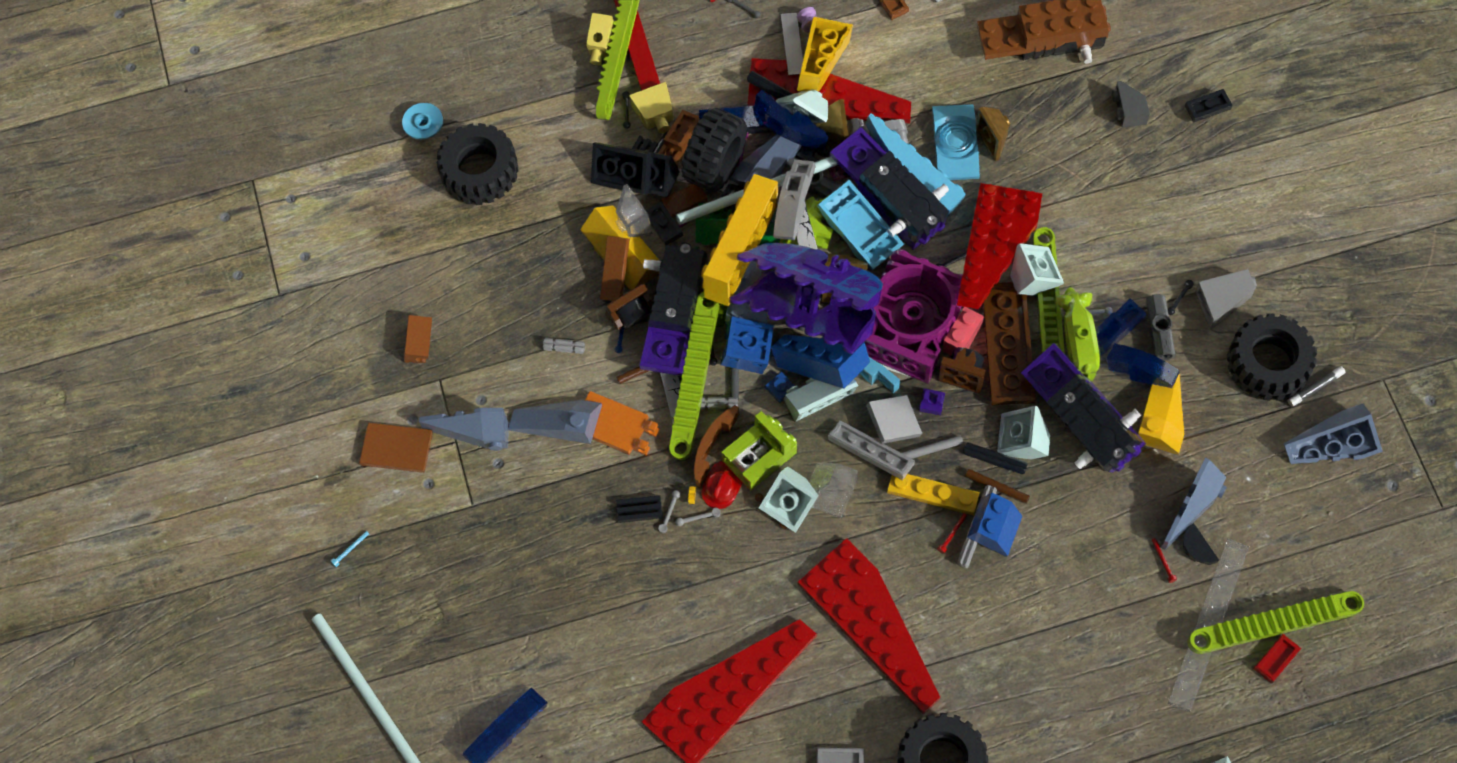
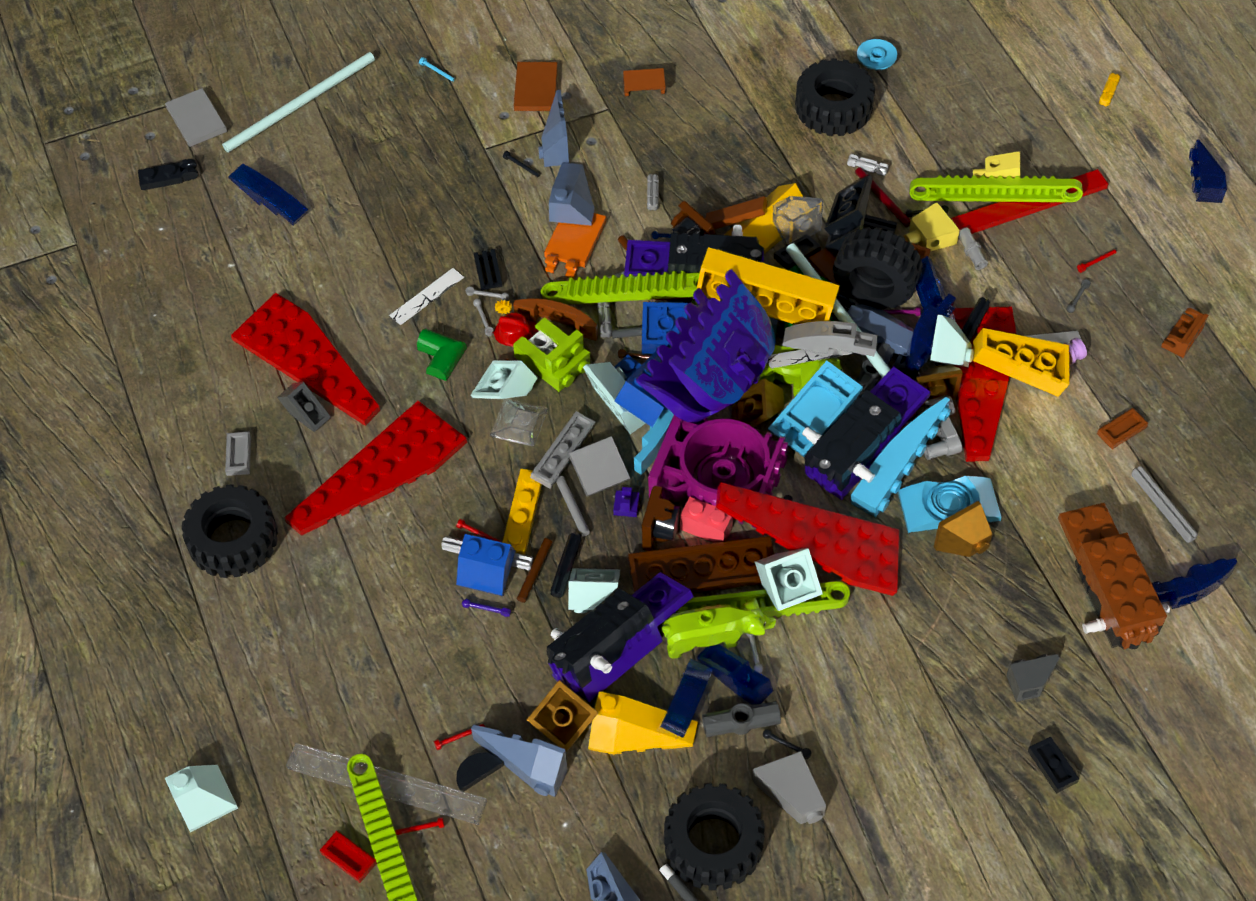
camera: 80 degrees right, 10 degrees down
(488, 482) = (507, 155): none -> black piece
(561, 150) = (868, 164): none -> light grey axle
(609, 140) = (885, 199): none -> dark red bar
(662, 571) = (426, 296): none -> white sticker
(681, 78) = (972, 249): none -> light grey pin
(739, 552) = (445, 350): none -> green brick
(759, 391) = (622, 353): none -> reddish brown hinge
(793, 692) = (304, 406): none -> dark grey slope
(1029, 547) = (466, 603): none -> dark purple hinge
(1160, 467) = (562, 716): none -> pearl gold slope
(1247, 579) = (440, 822): none -> red piece

